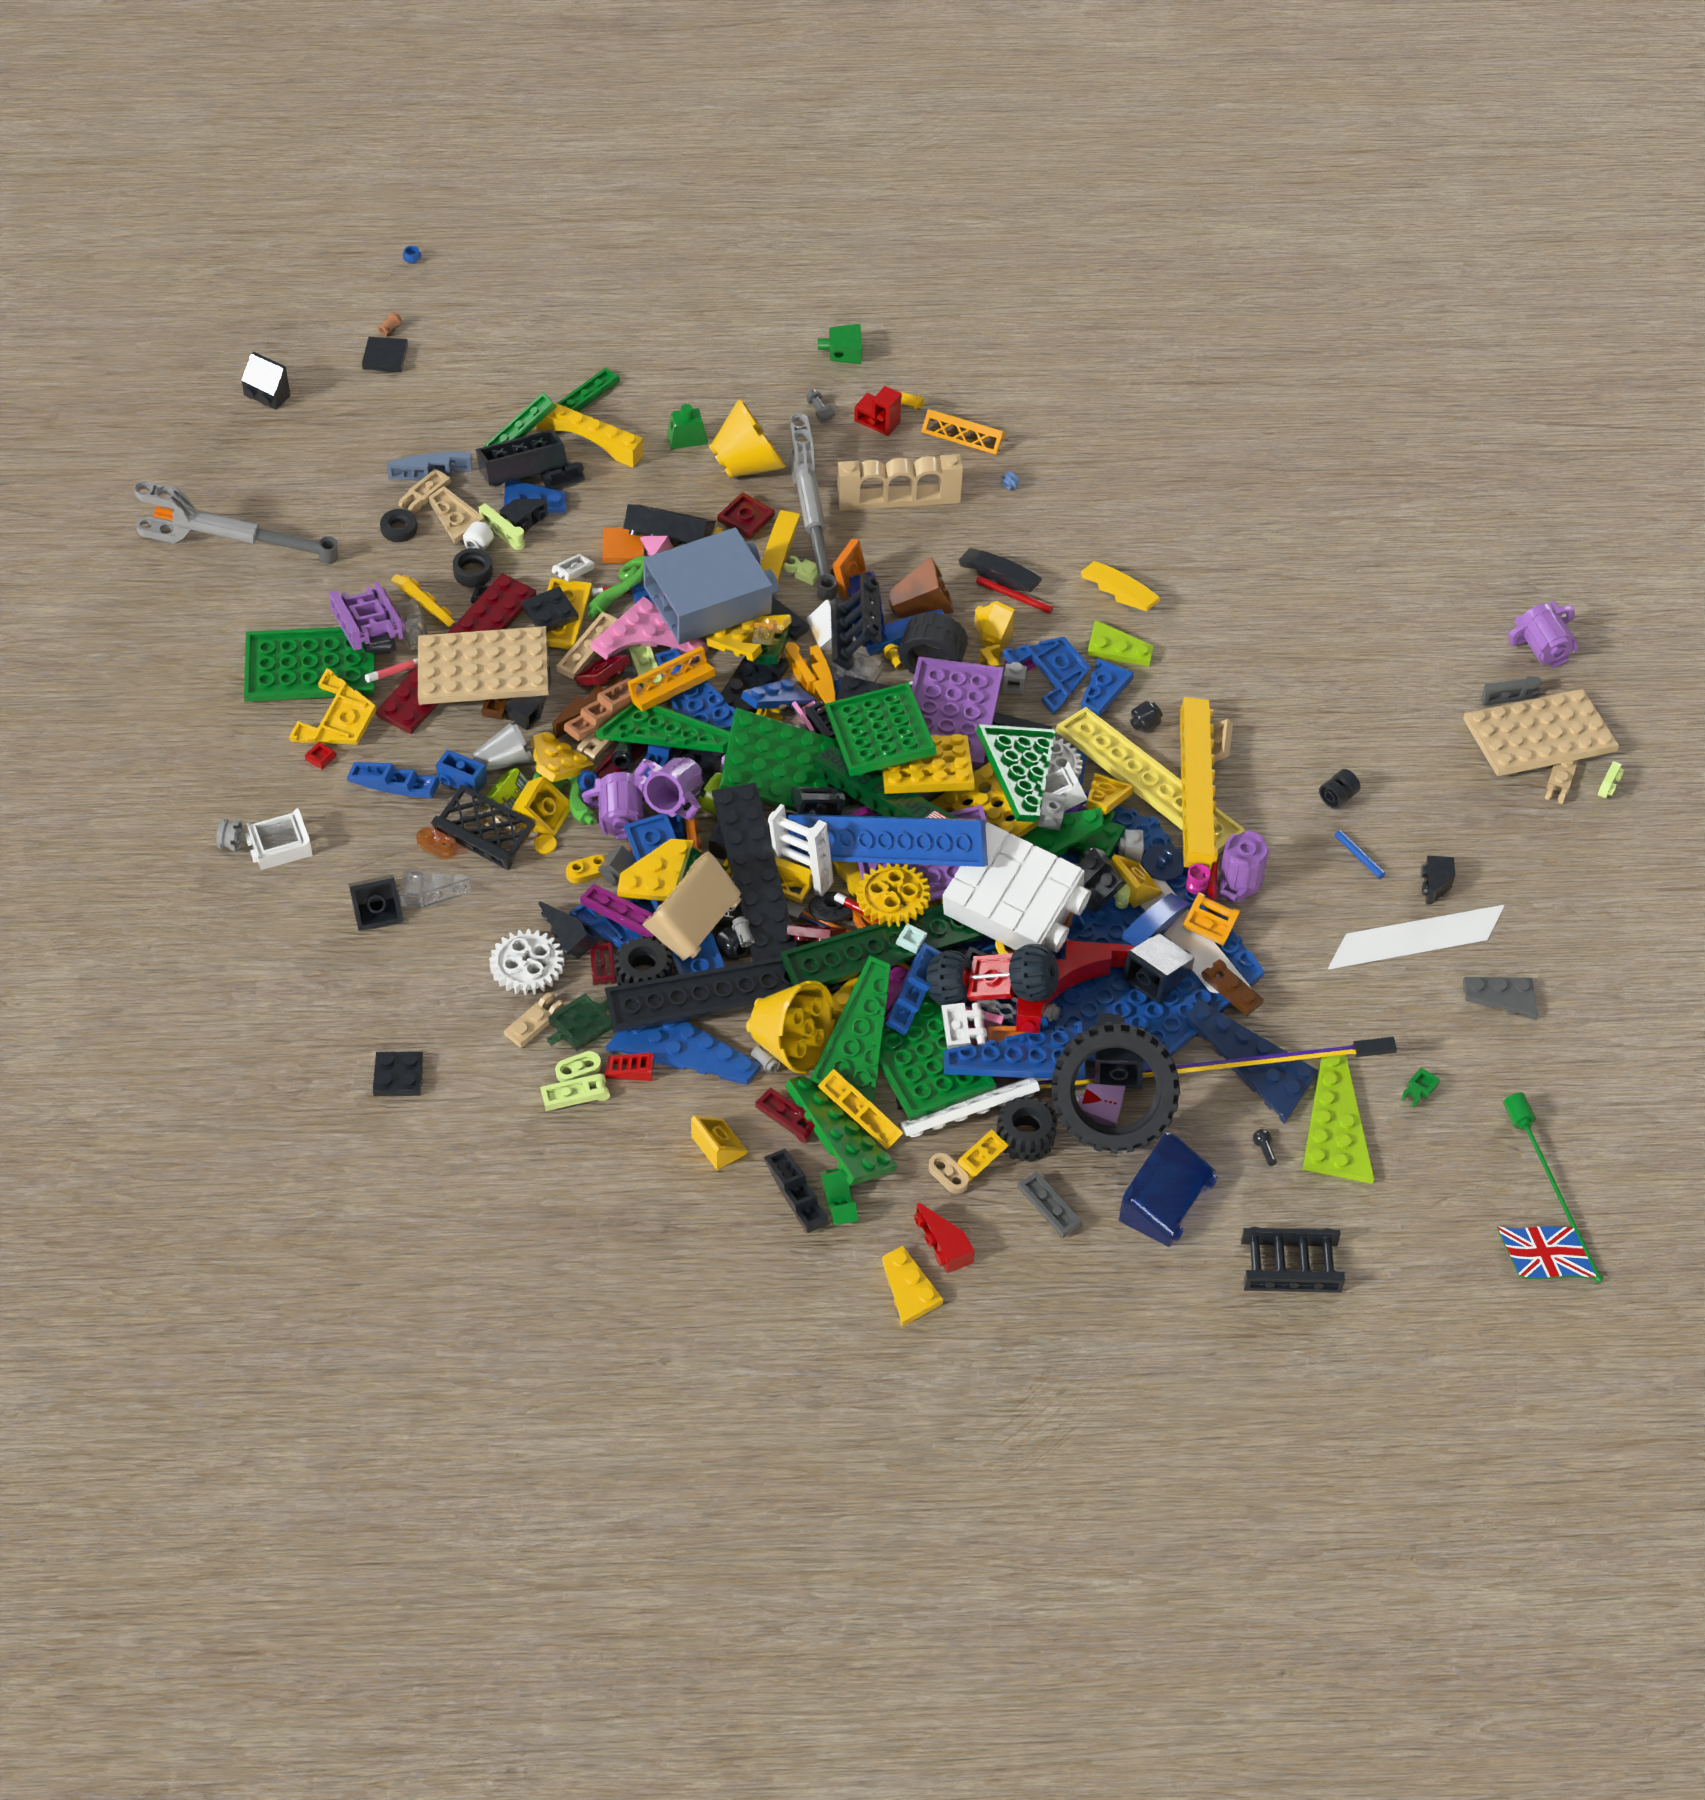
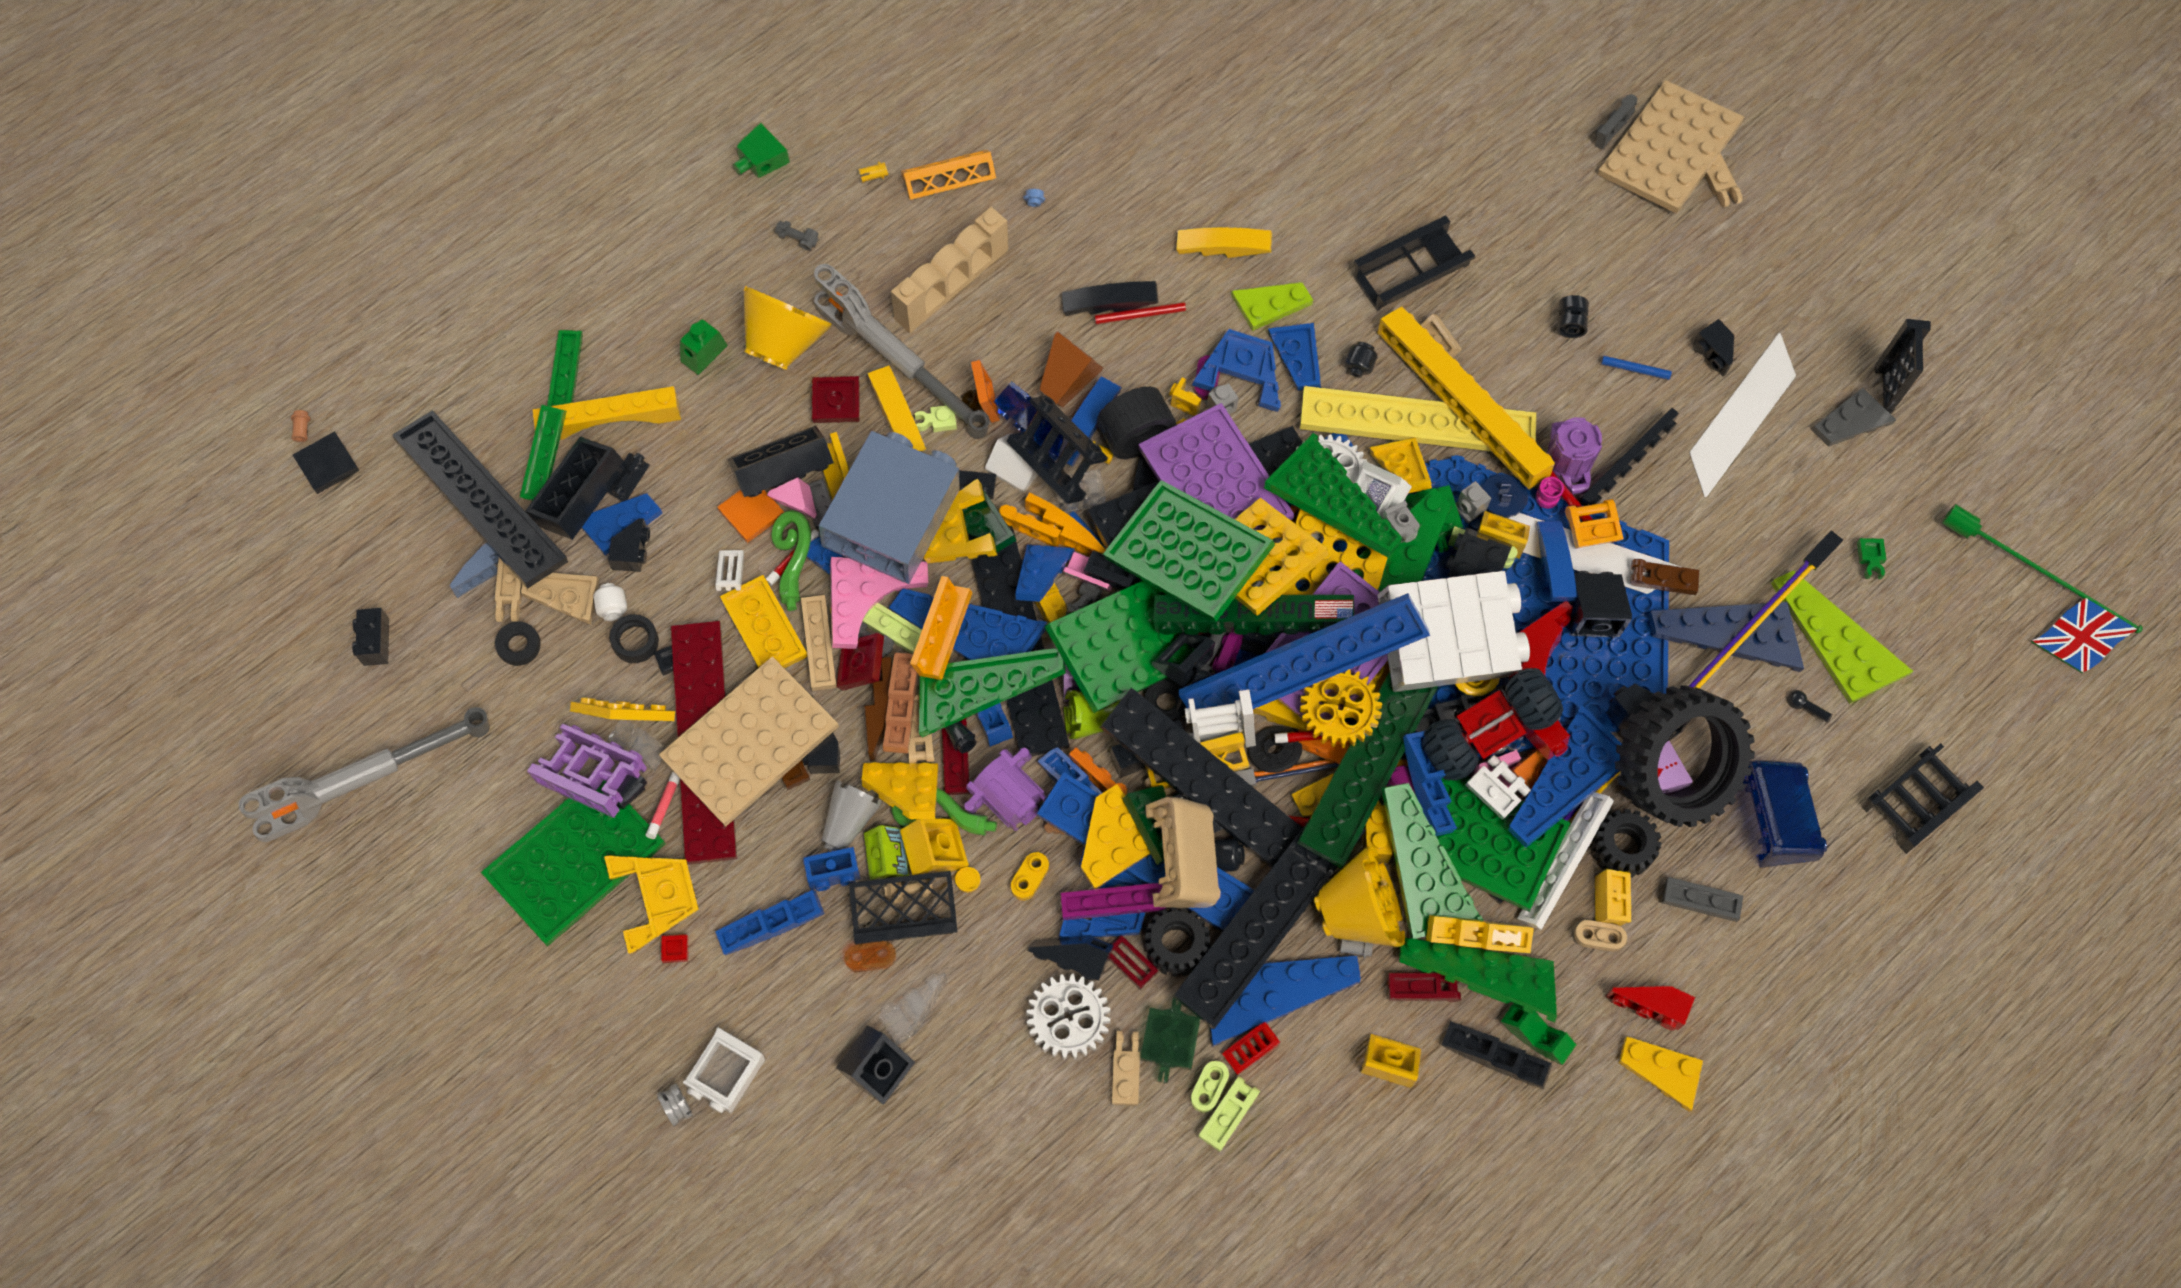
camera: 40 degrees left, 15 degrees up
(265, 381) = (239, 580): slope -> none
(313, 463) = (371, 636): none -> black brick
(398, 1074) = (1057, 1223): black plate -> none
(411, 254) = (247, 327): blue plate -> none
(454, 426) = (480, 499): none -> black plate
(503, 527) = (623, 574): yellowish green plate -> none
(550, 609) = (753, 633): black plate -> none
(581, 780) = (954, 788): blue plate -> none
(615, 863) = (1059, 855): dark grey brick -> none
(671, 786) = (1051, 743): medium lavender container -> none
(743, 932) = (1237, 840): light grey pin -> none
(764, 632) = (977, 514): clear yellow bracket -> none
(813, 932) = (1295, 790): plate -> none
(880, 411) = (859, 206): red brick -> none
(911, 938) = (1391, 738): light aqua tile -> none
(994, 624) = (1158, 360): yellow slope -> none
(1283, 674) = (1437, 243): none -> black piece
(1292, 902) = (1634, 454): none -> black plate
(1546, 633) = (1602, 47): medium lavender container -> none
(1568, 965) = (1902, 361): none -> black fence
(1608, 785) = (1760, 154): yellowish green plate -> none

